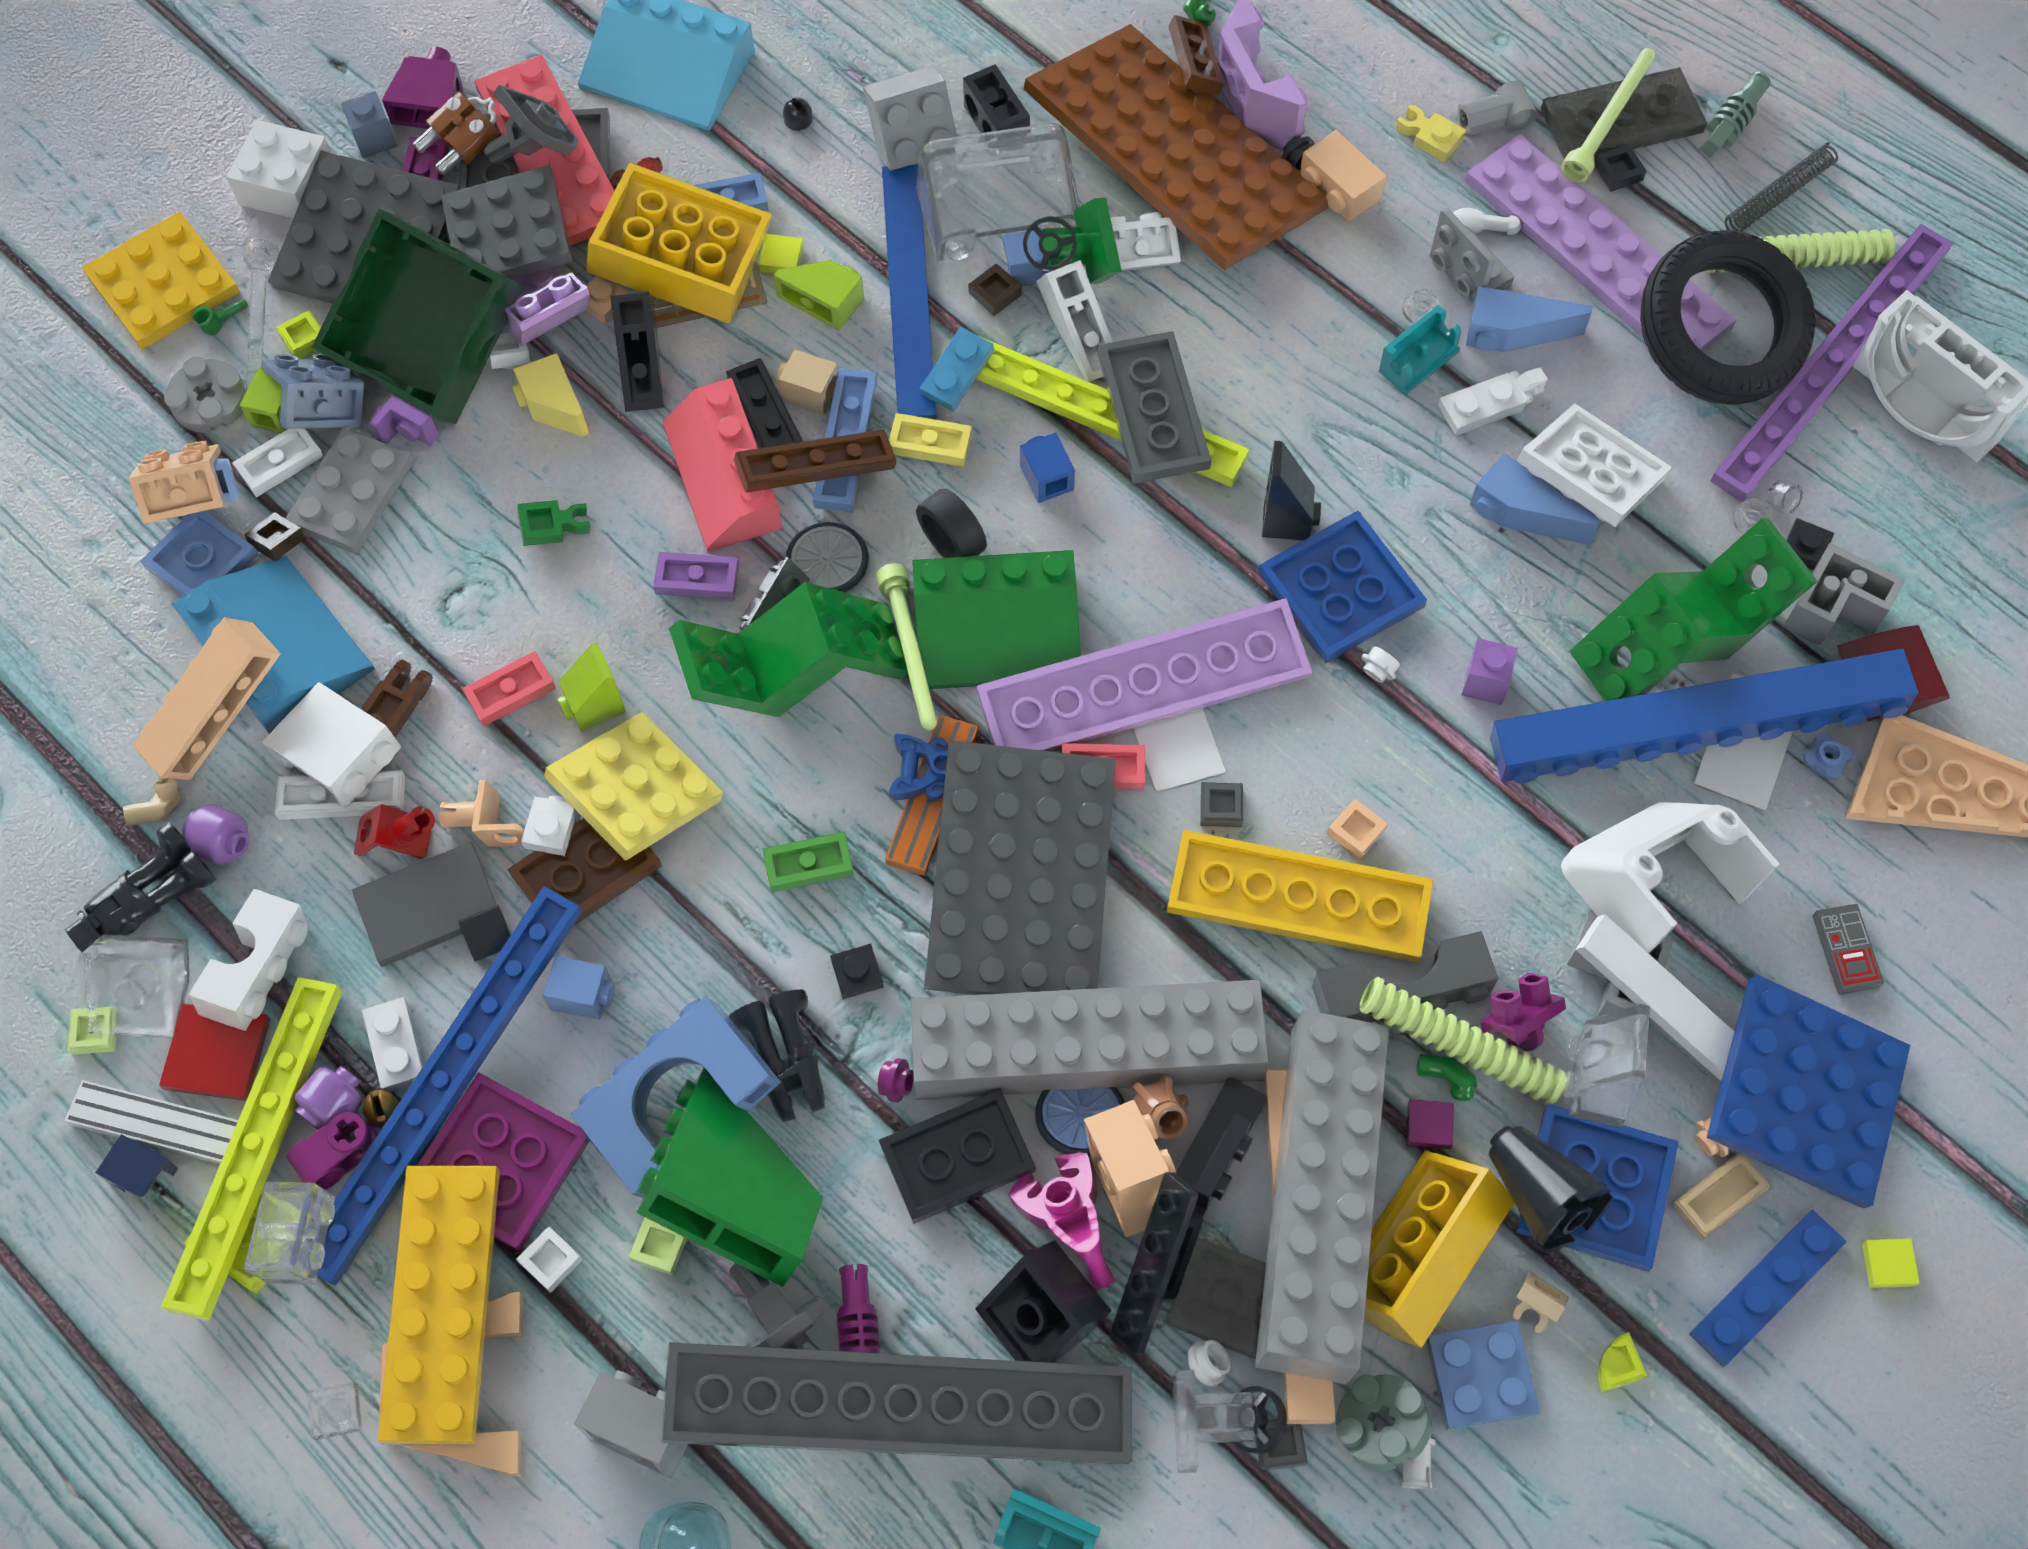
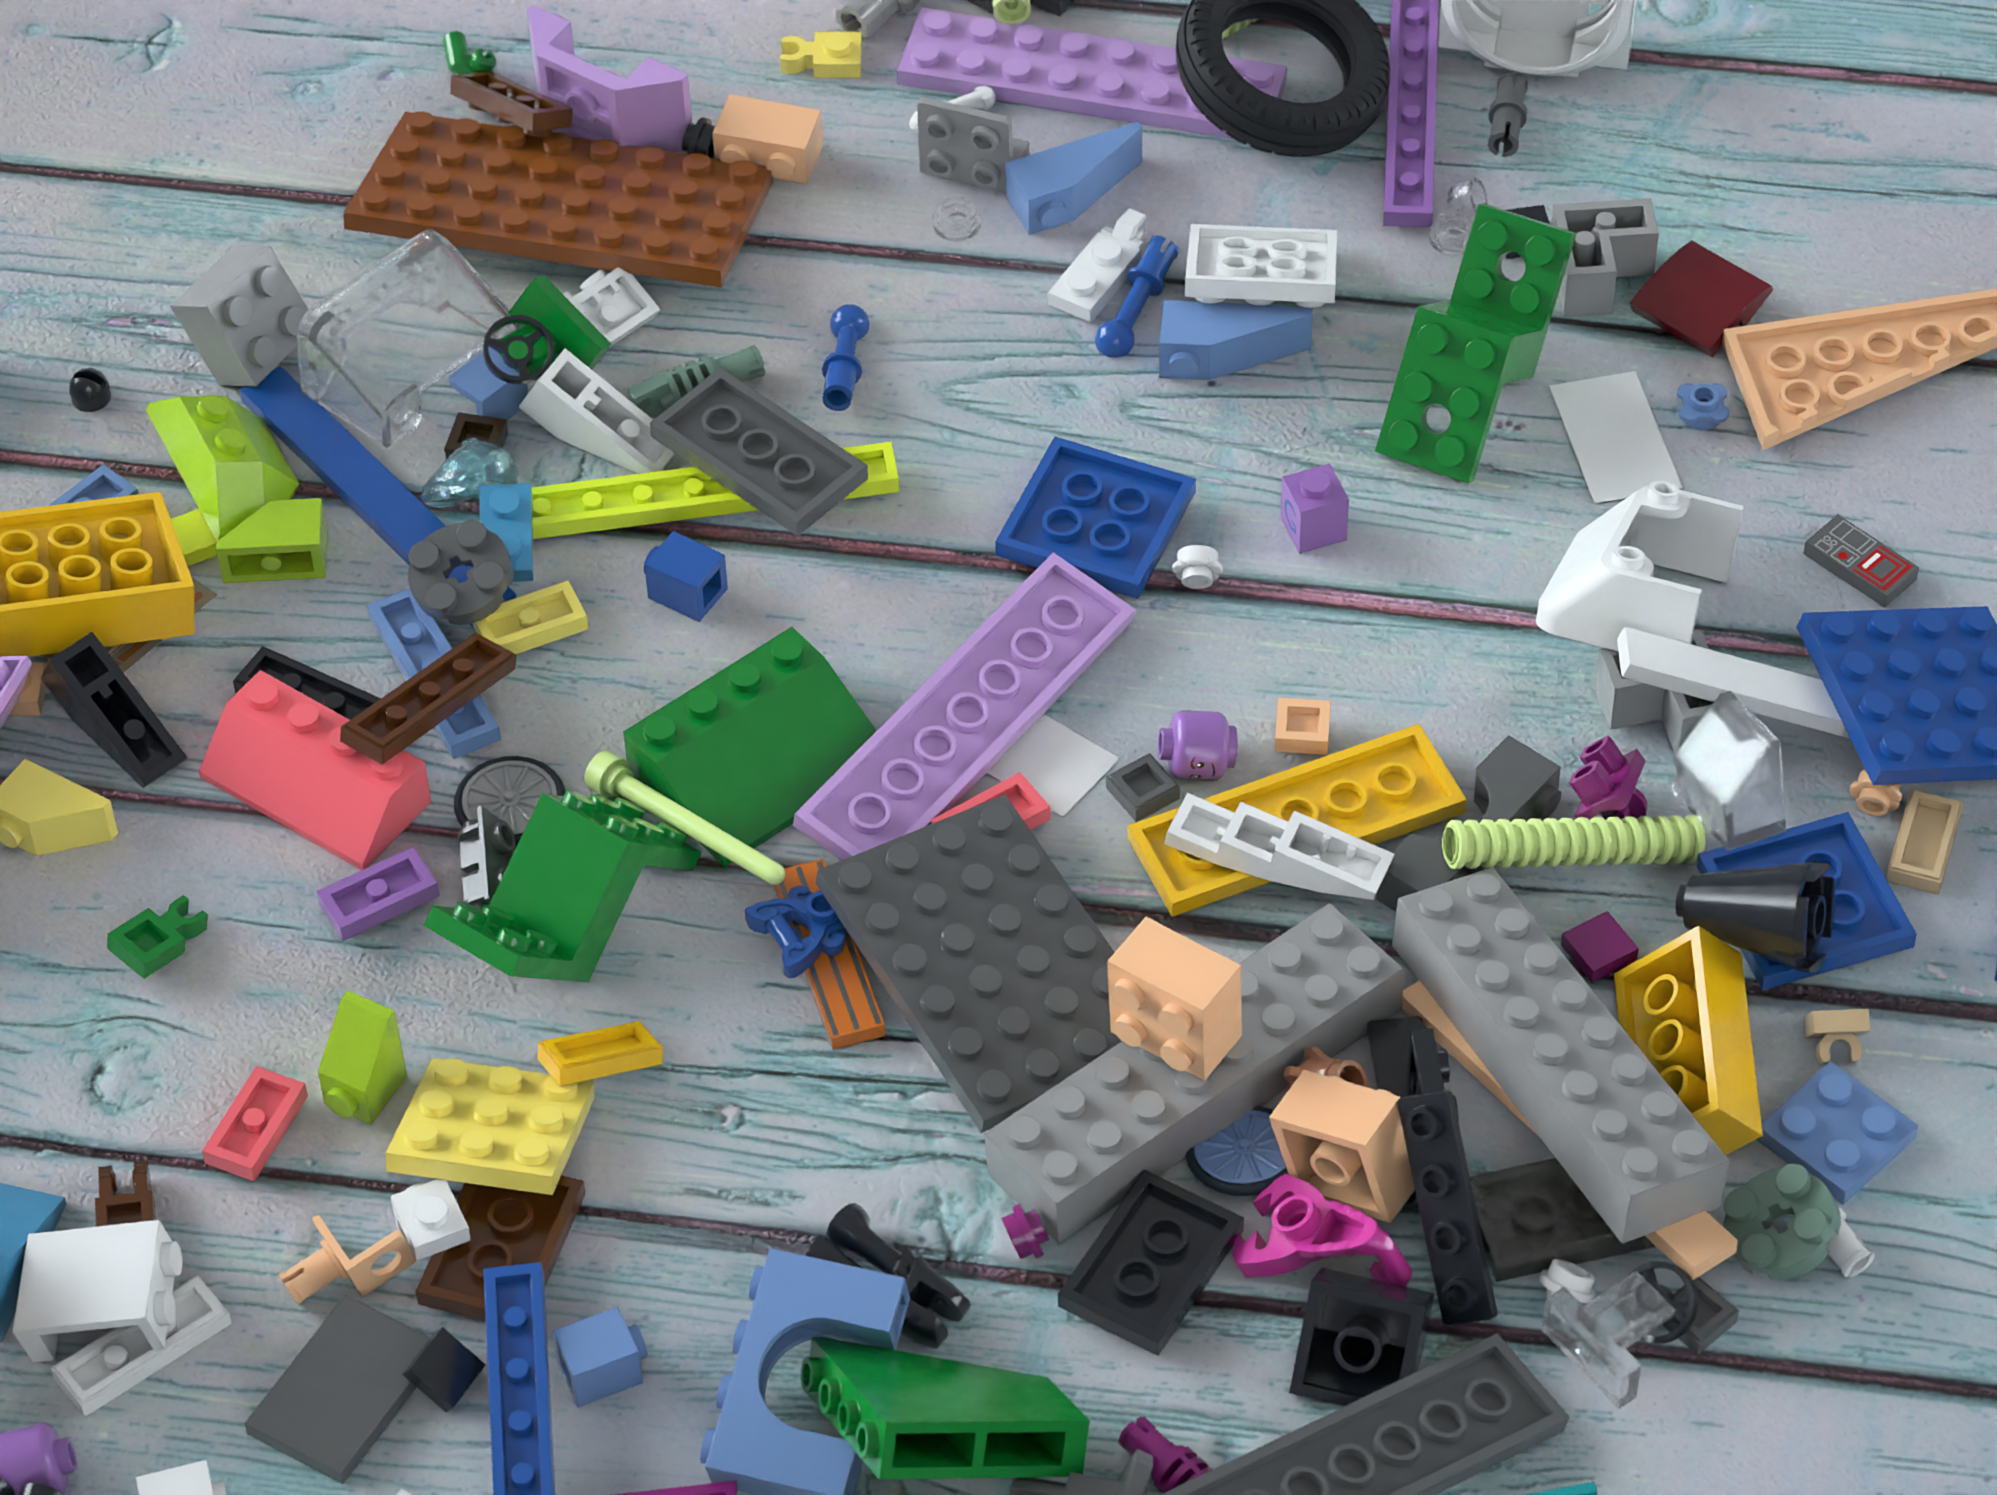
camera: 35 degrees left, 15 degrees down
(395, 831) = (246, 1332): red bracket -> none
(737, 776) = (600, 1053): none -> yellow tile
(807, 381) = (341, 637): tan brick -> none
(808, 862) = (749, 1090): bright green plate -> none
(836, 213) = (223, 457): none -> lime wedge
(856, 971) = (891, 1163): black plate -> none
(888, 367) = (455, 546): none -> dark grey plate
(951, 525) = (639, 658): black tyre -> none
(968, 310) = (466, 469): none -> clear light blue hat
(993, 102) = (323, 256): black brick -> none
(1081, 995) = (1175, 998): none -> light nougat brick
(1139, 323) = (667, 387): none -> sand green hinge
(1261, 375) = (842, 367): none -> blue pin
(1261, 915) = (1284, 852): none -> white slope
(1276, 799) = (1198, 745): none -> medium lavender head
(1289, 498) = (976, 465): black slope -> none
(1420, 351) = (991, 260): teal hinge -> none
(1452, 1070) = (1577, 886): green arm -> none
(1462, 457) = (1116, 336): none -> blue pin
(1620, 1364) = (1956, 1042): neon yellow tile -> none
(1703, 716) = (1553, 432): blue brick -> none
(1864, 447) = (1507, 114): none -> dark grey pin

